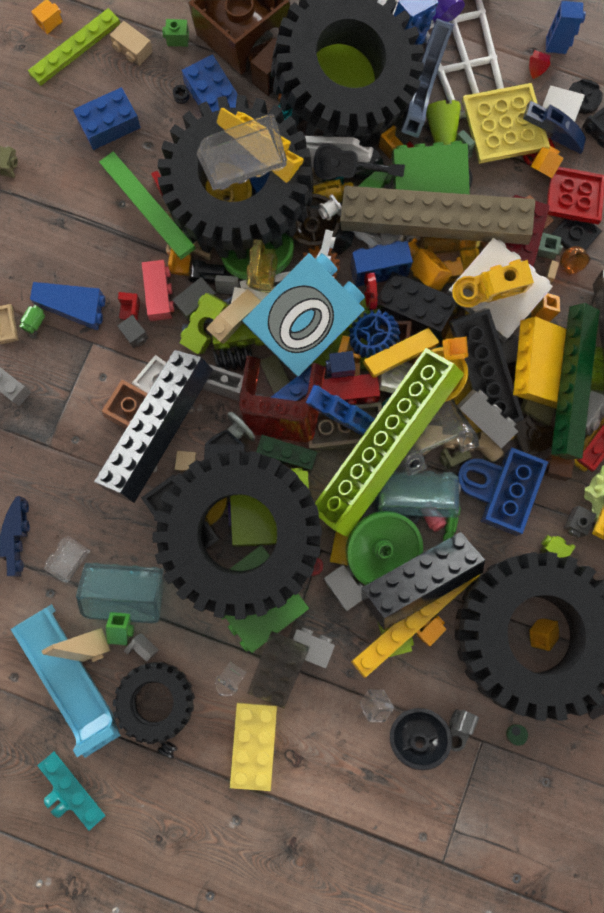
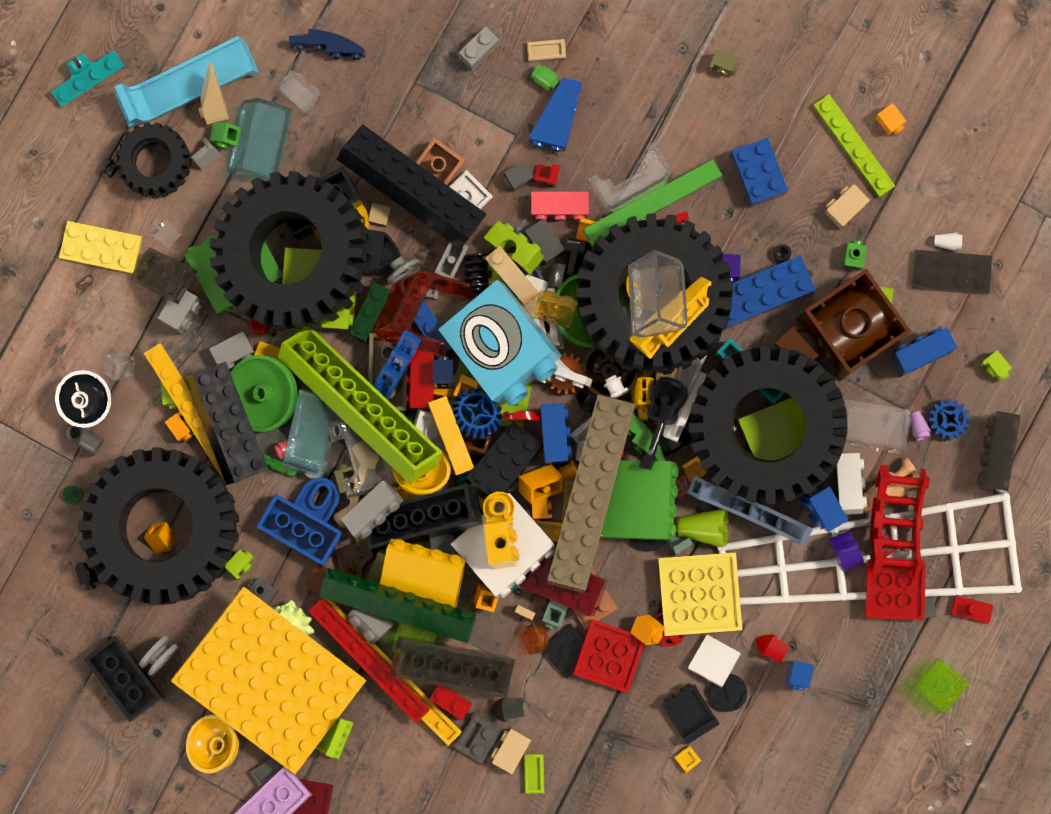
camera: 105 degrees right, 5 degrees up
(115, 202) = (653, 176): none -> clear windscreen
(455, 348) = (439, 482): light orange panel -> none
(558, 123) = (686, 646): dark blue slope -> none

